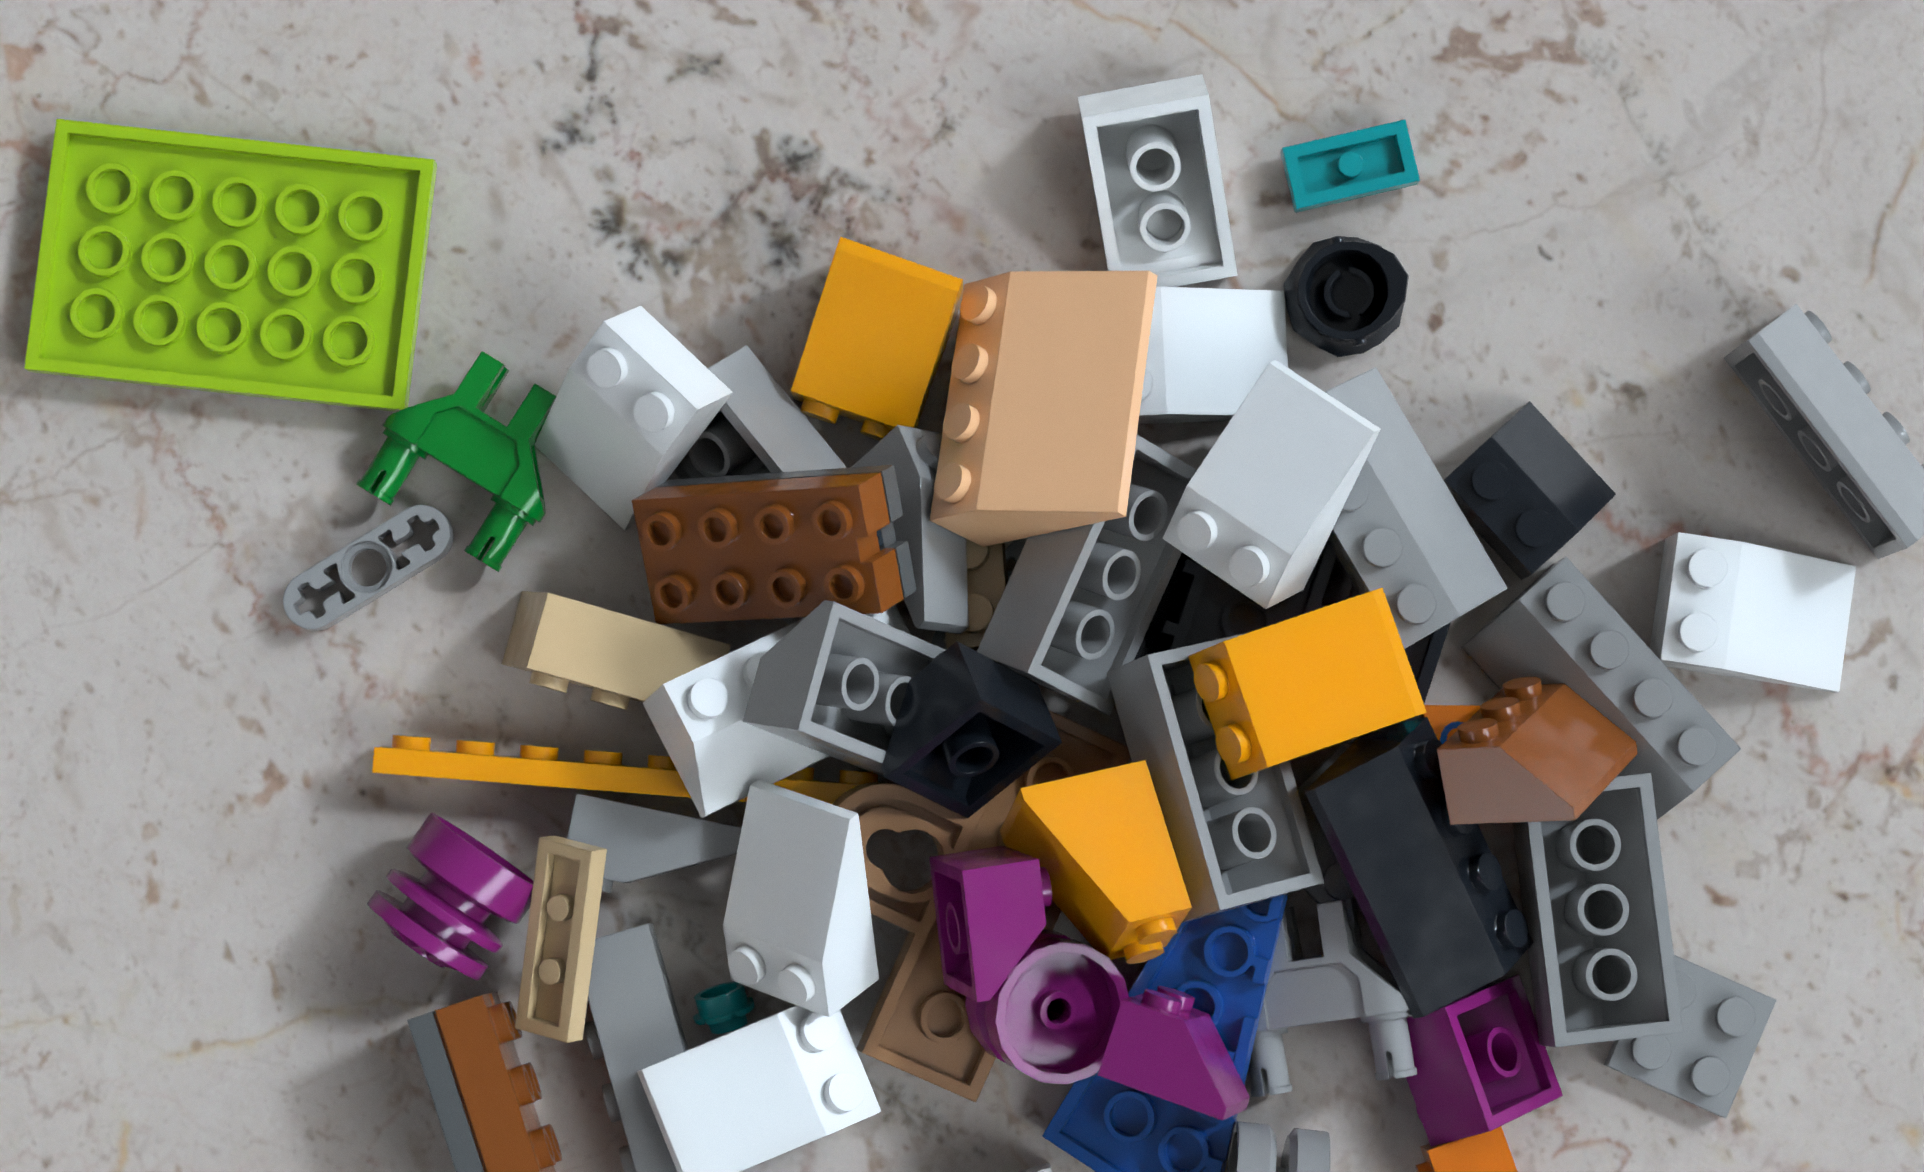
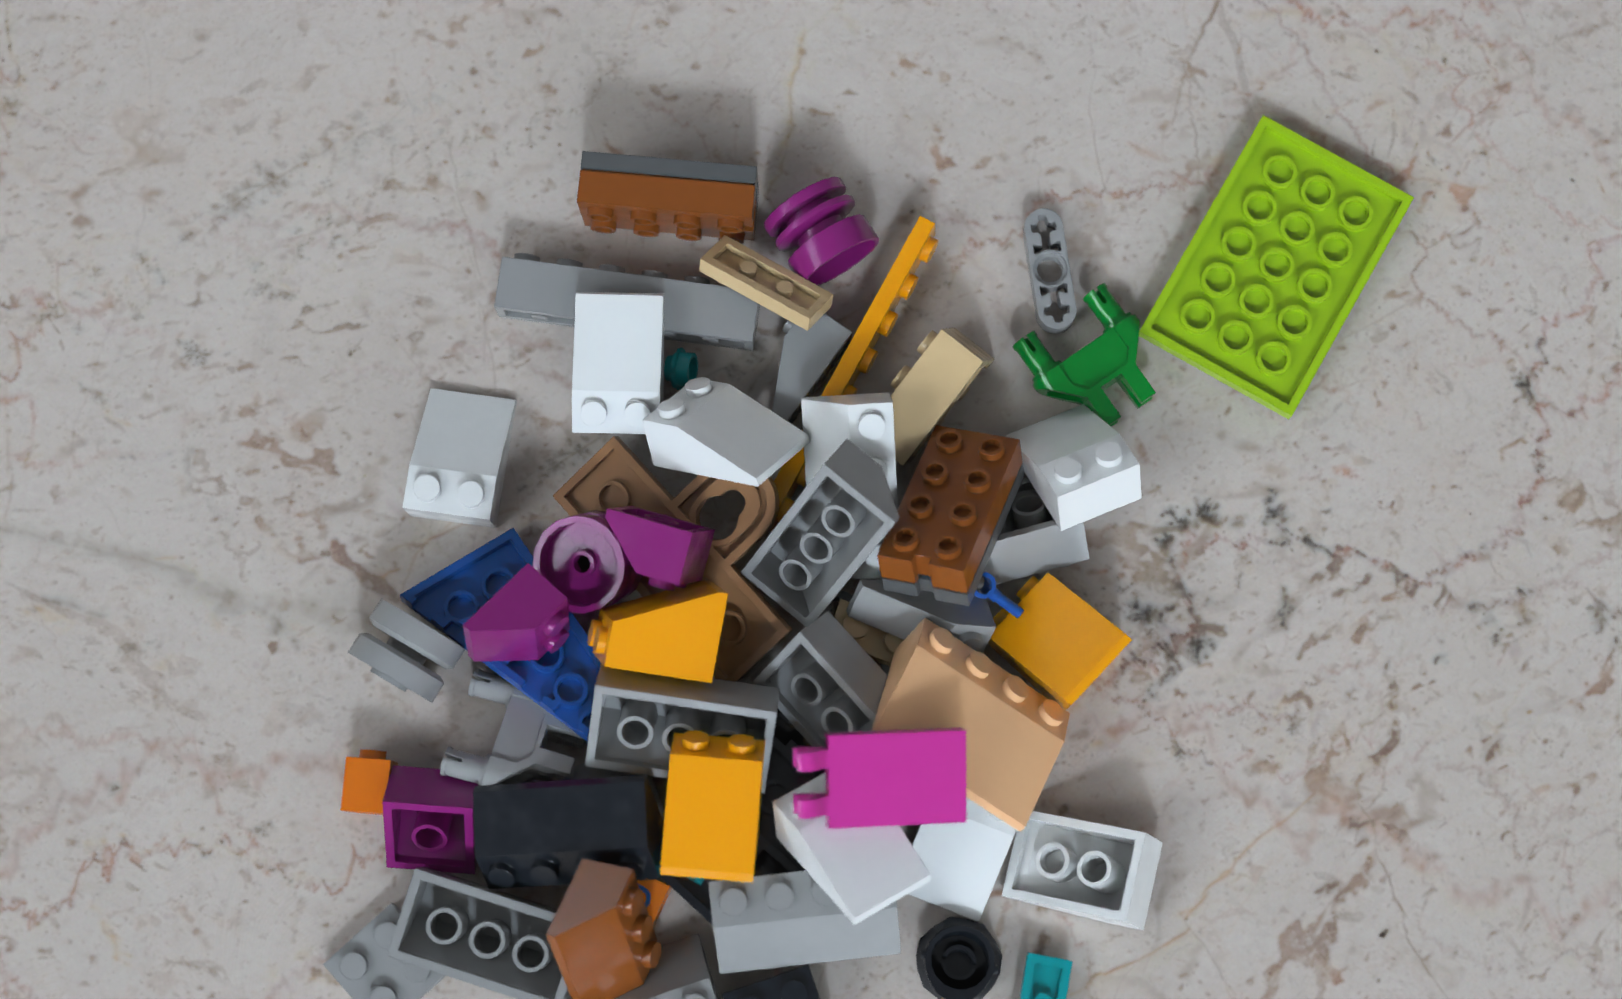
camera: 115 degrees right, 5 degrees down
(852, 453) = (994, 594): none -> blue hand
(967, 731) = (781, 582): black slope -> none
(1174, 471) = (886, 778): none -> dark pink tile

